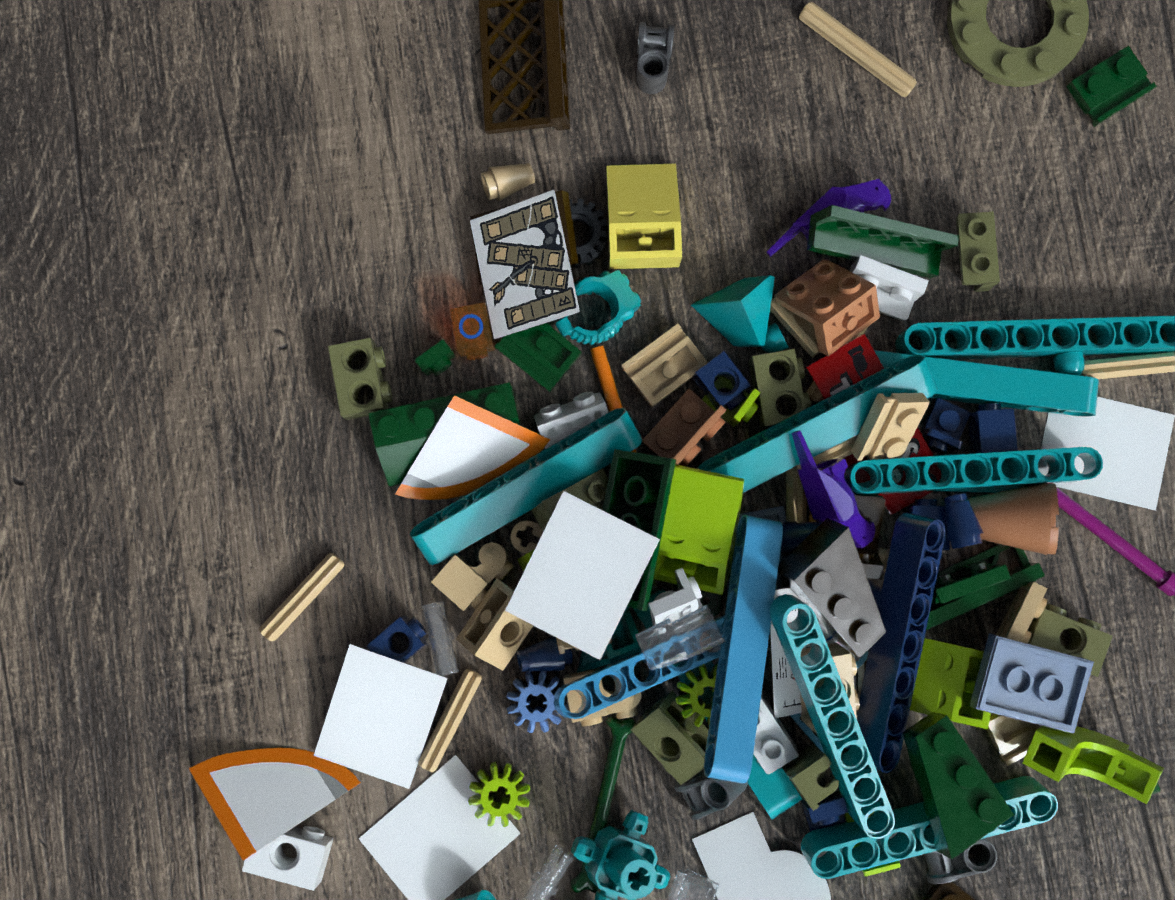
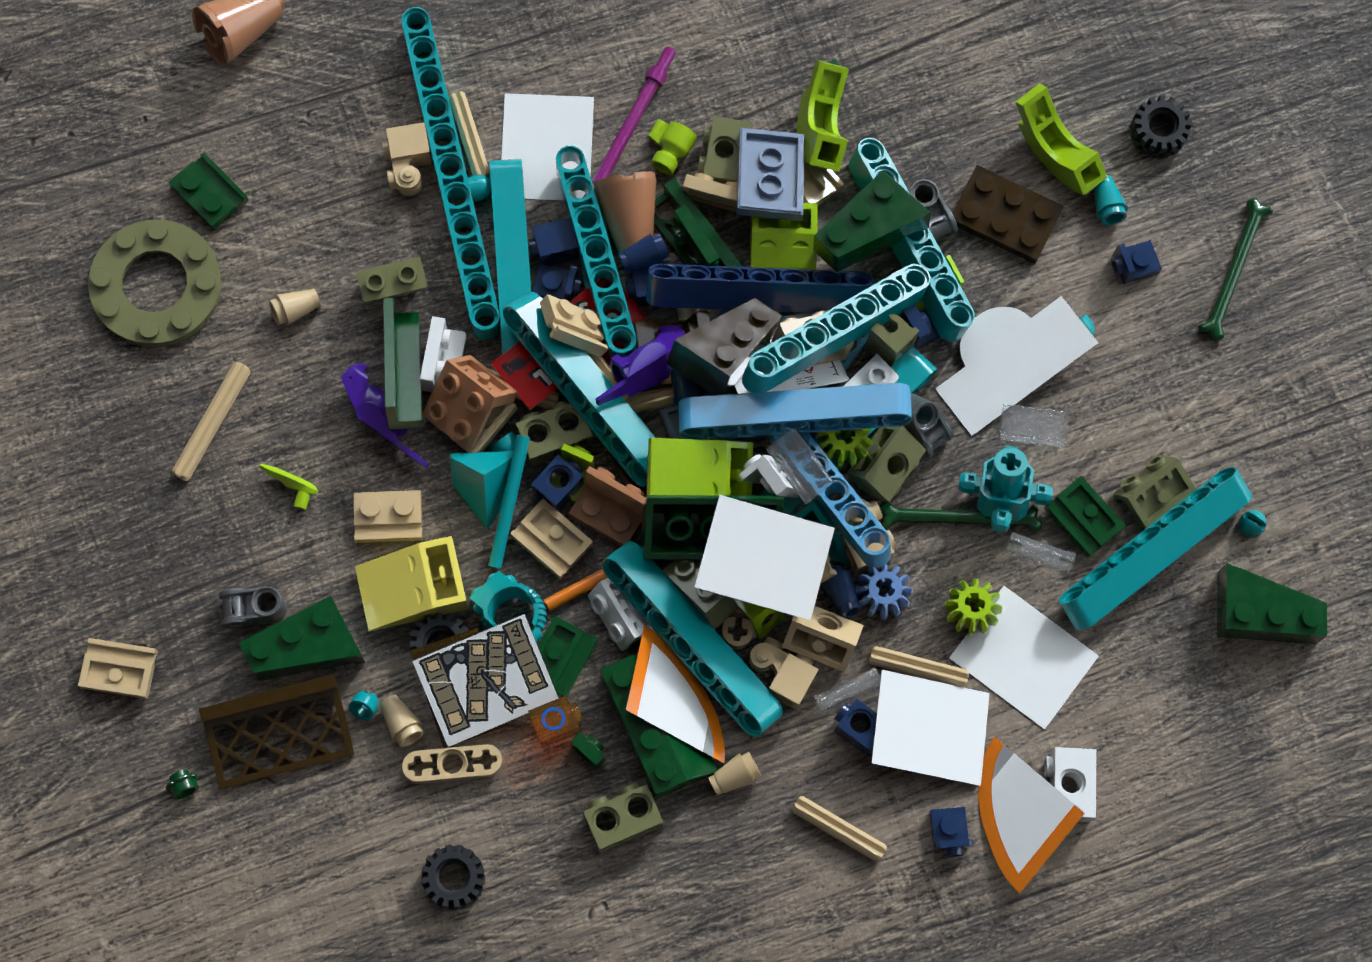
camera: 110 degrees left, 10 degrees down
(271, 711) = (950, 831): none -> dark blue bracket
(326, 188) = (437, 862): none -> black tyre
(379, 503) = (735, 774): none -> tan cone
(447, 198) = (477, 754): none -> tan beam
(532, 149) = (364, 705): none -> teal hinge
(606, 98) = (302, 643): none -> dark green wedge
(713, 328) = (509, 501): none -> teal bar
(722, 207) = (388, 516): none -> tan plate
(777, 118) = (293, 482): none -> lime bar
(967, 149) = (293, 305): none -> tan cone
(1086, 587) = (675, 142): none -> lime piece
(1123, 294) = (407, 149): none -> tan brick

